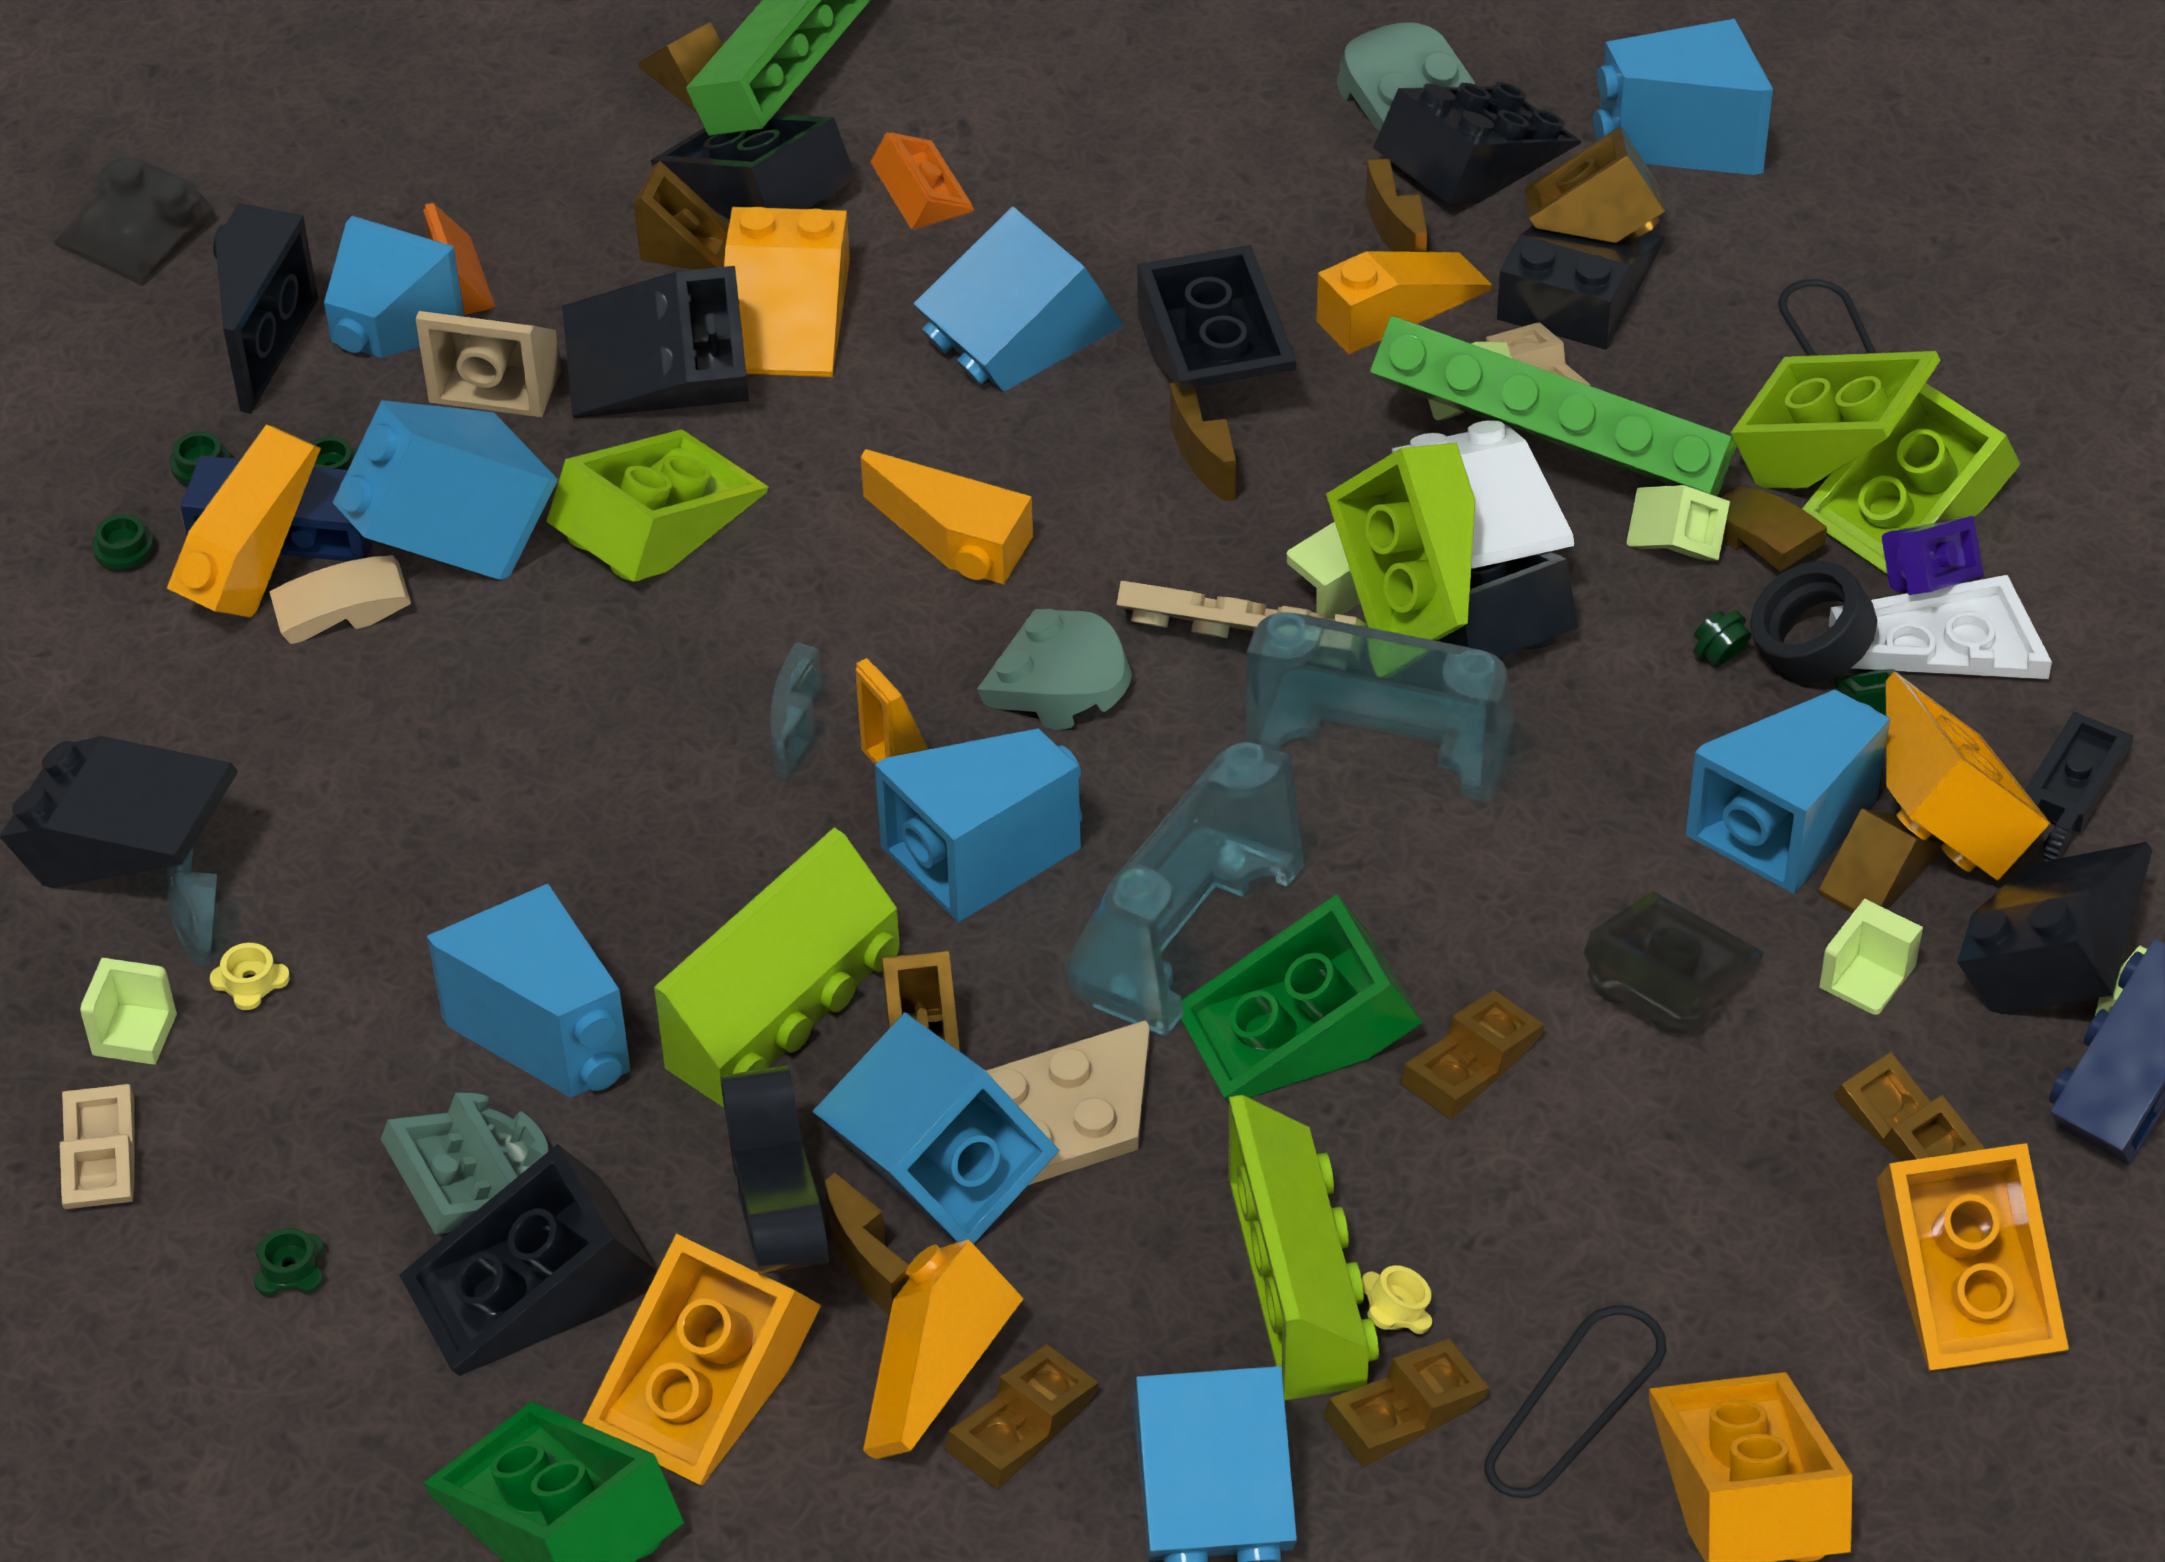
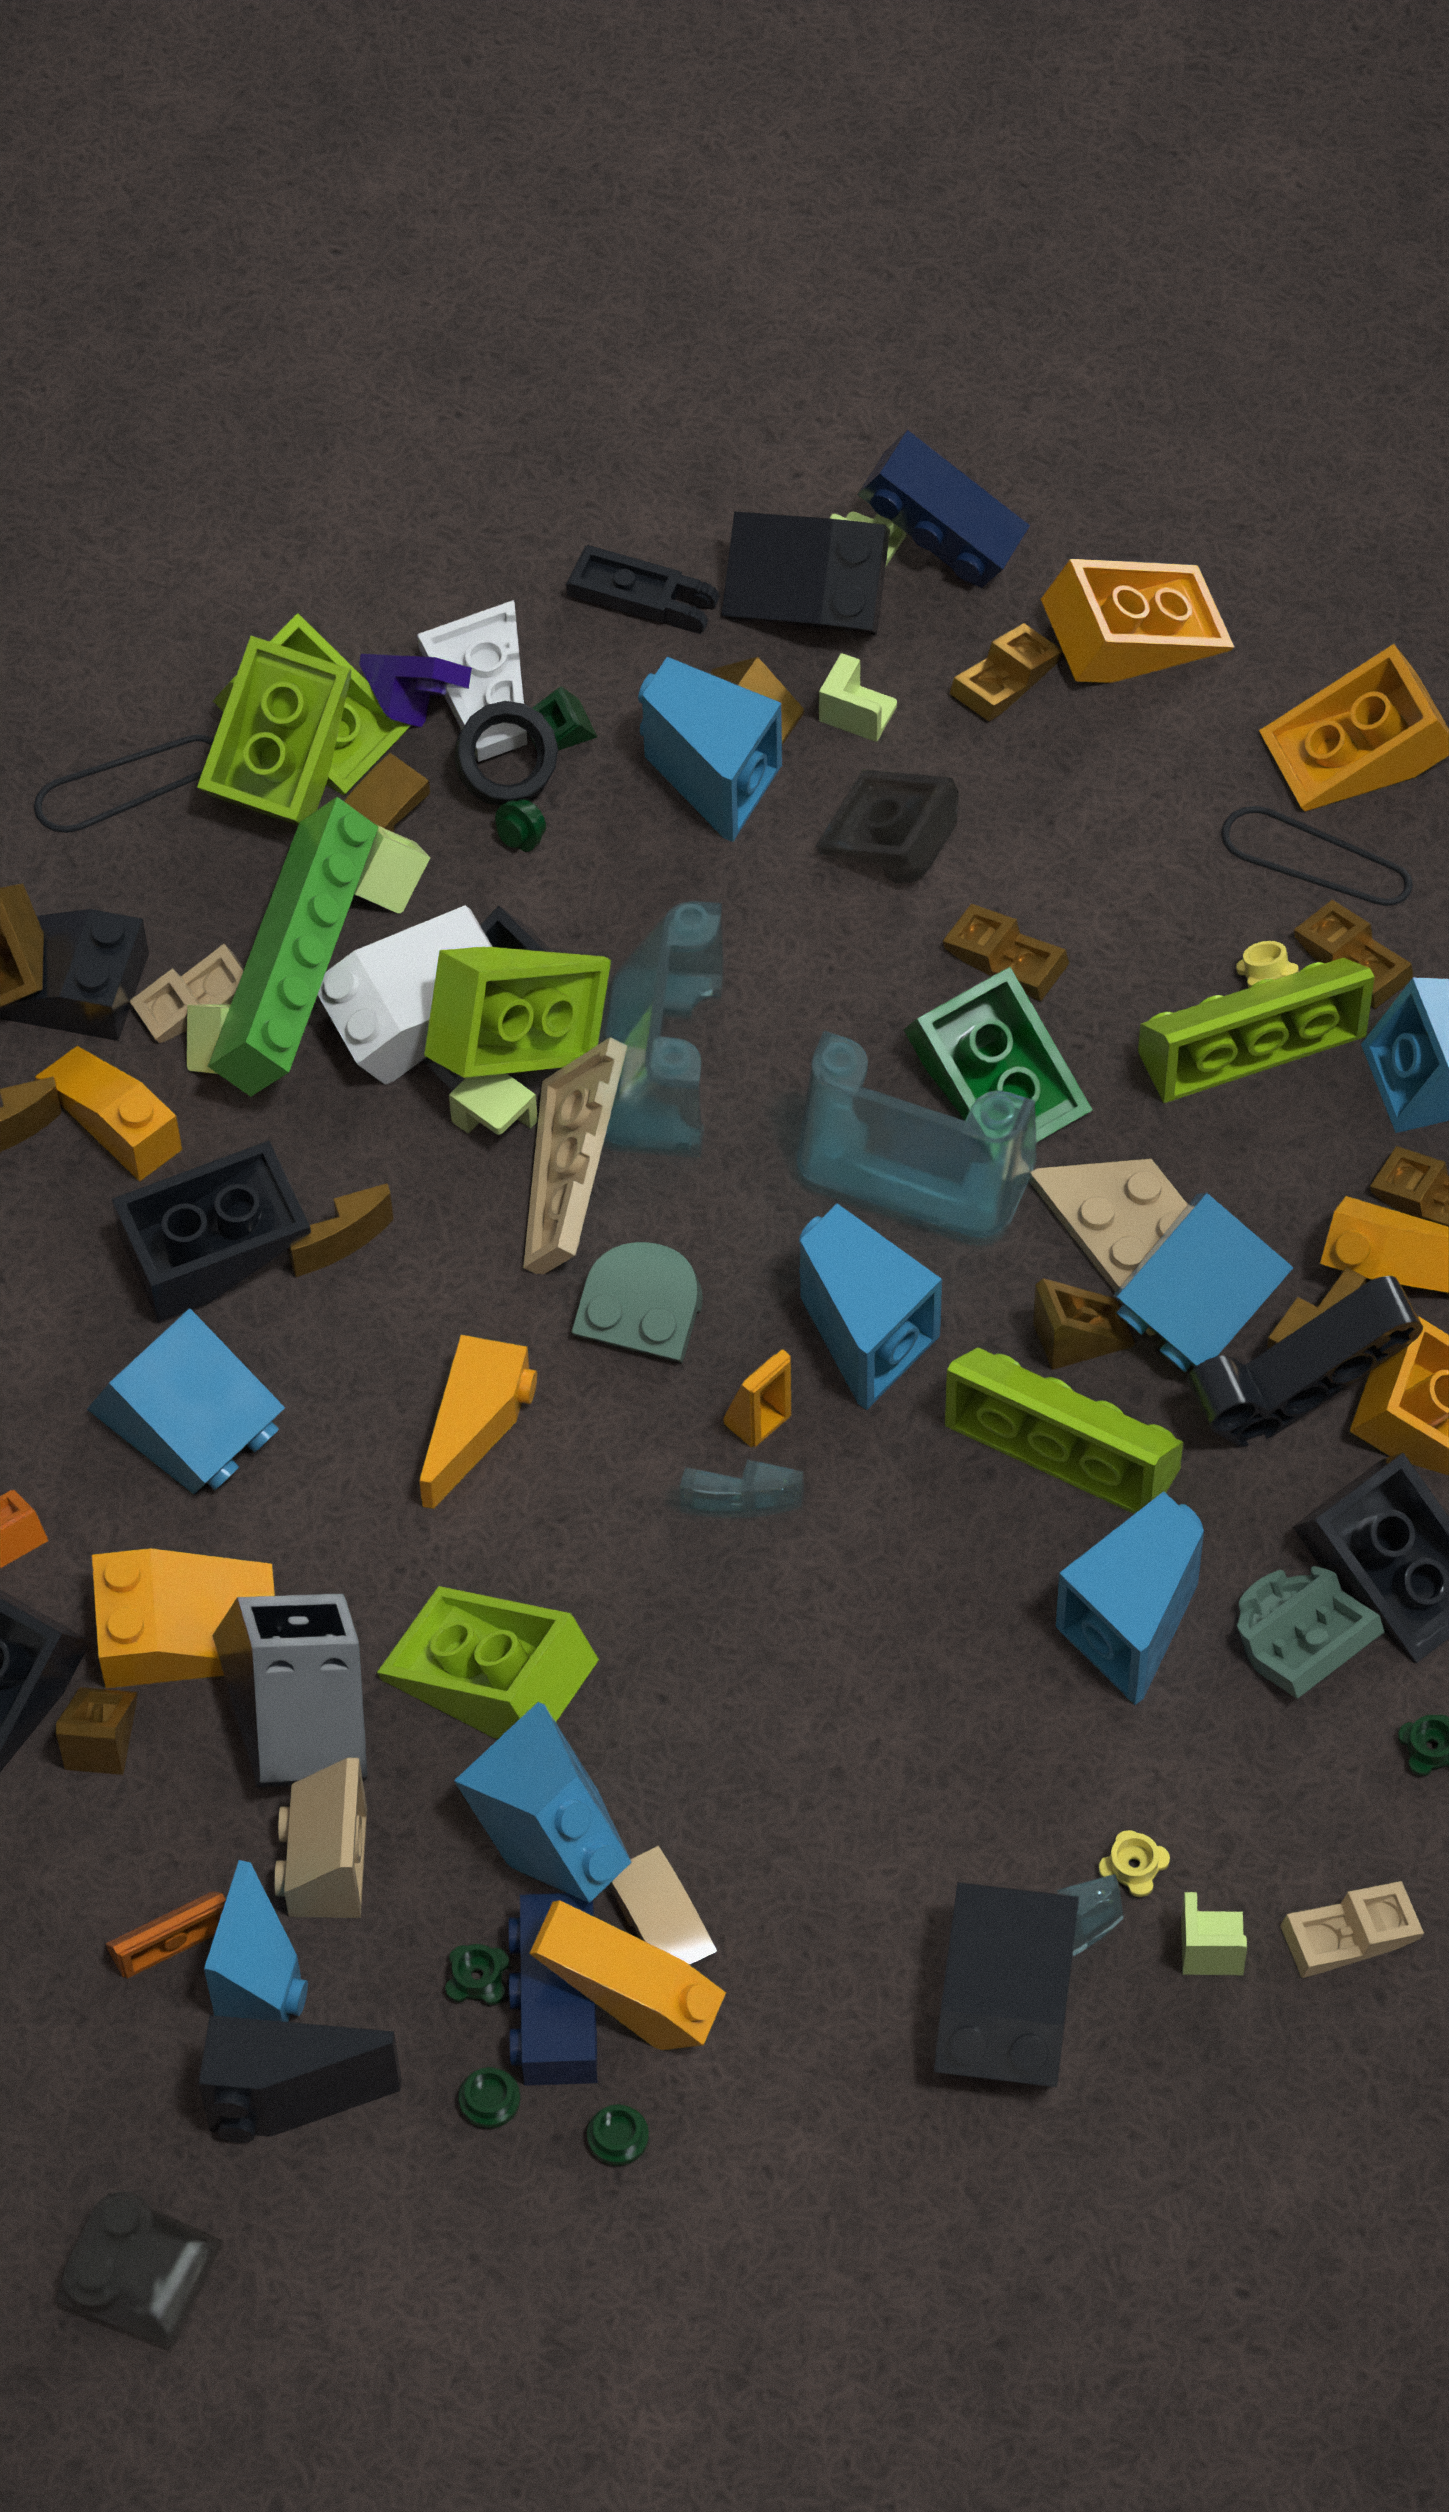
camera: 100 degrees left, 10 degrees up
(1954, 784) = (696, 630): light orange slope -> none

